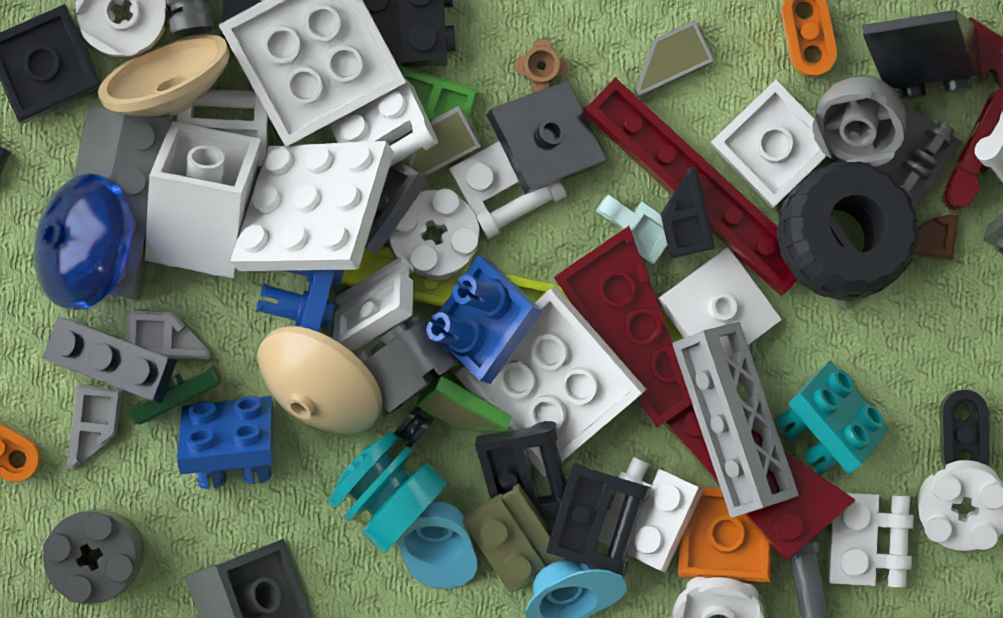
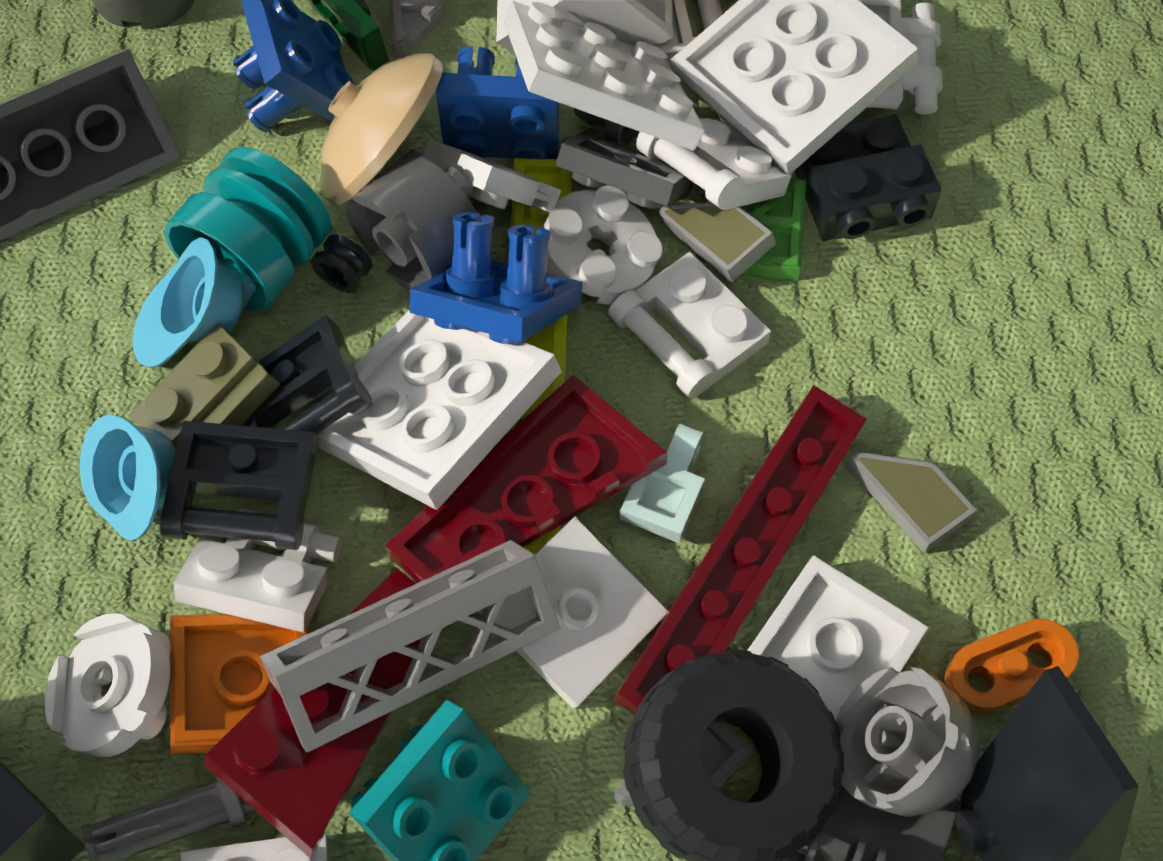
camera: 80 degrees right, 25 degrees down
(461, 408) = (376, 303): tile -> none
(541, 53) = (859, 323): medium nougat plate -> none
(546, 137) = (760, 347): black plate -> none
(687, 219) = (696, 534): black tile -> none

